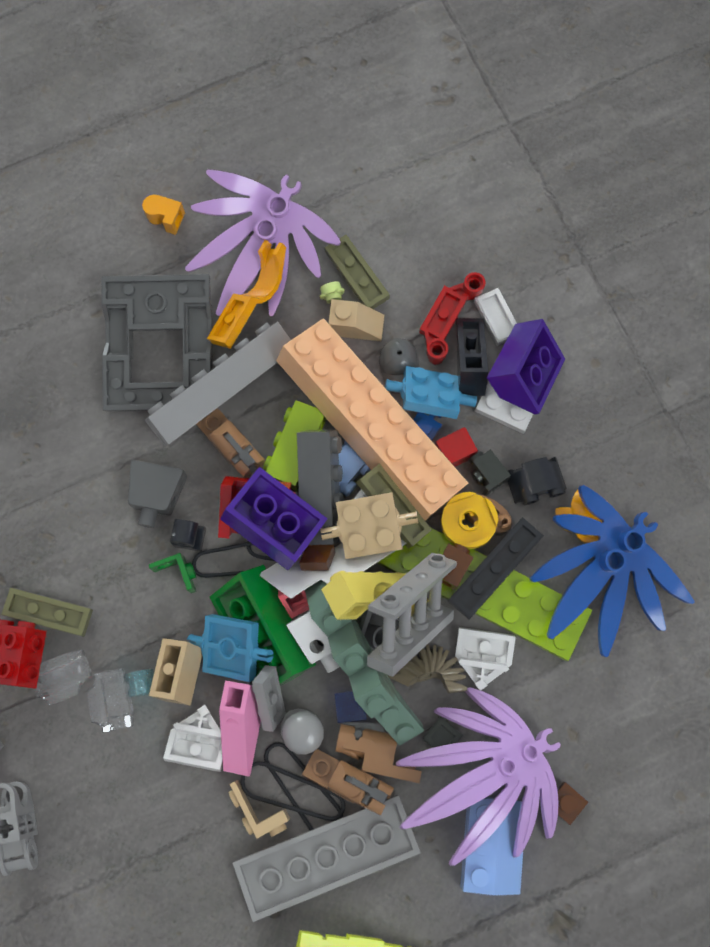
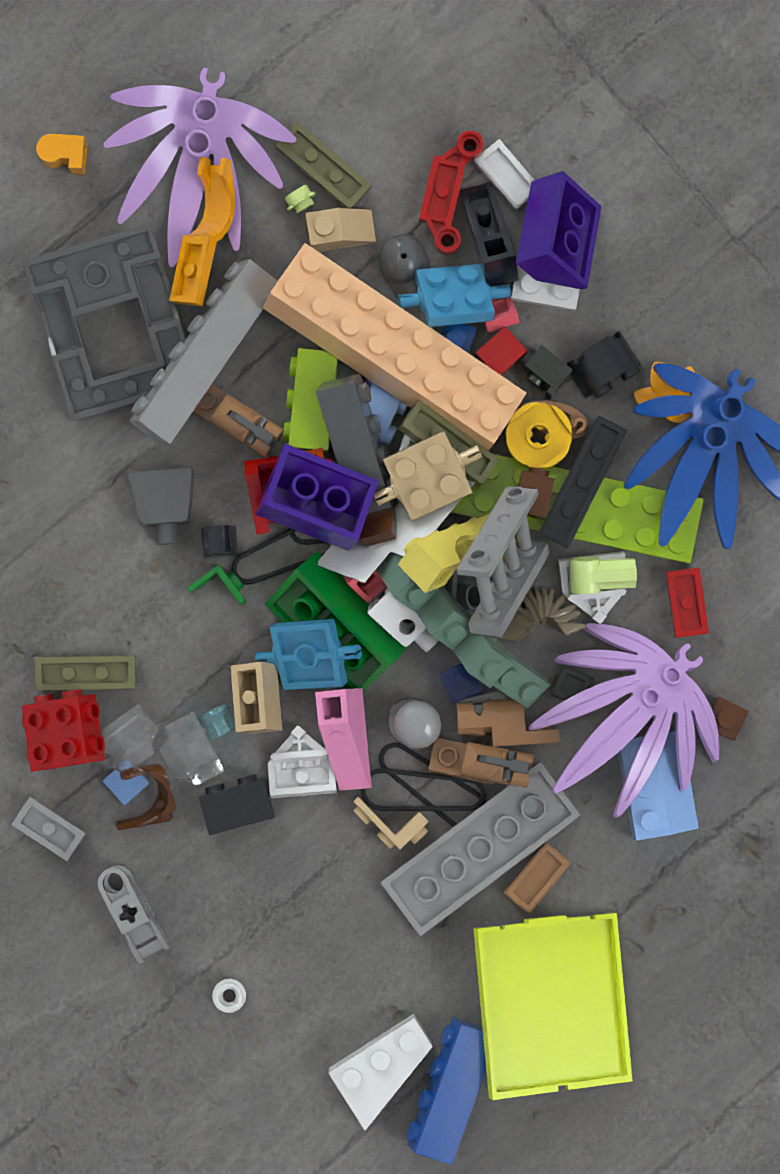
camera: 20 degrees left, 10 degrees up
(49, 716) = (125, 789): none -> medium blue tile
(66, 929) = (229, 1006): none -> white plate
(73, 741) = (164, 804): none -> reddish brown helmet
(132, 759) = (237, 805): none -> black brick
(268, 698) = (369, 697): light grey plate -> none
(368, 897) = (537, 877): none -> medium nougat tile
(466, 418) = (504, 314): none -> coral plate
(485, 647) = (591, 574): none -> yellowish green piece
(557, 693) = (687, 602): none -> red plate

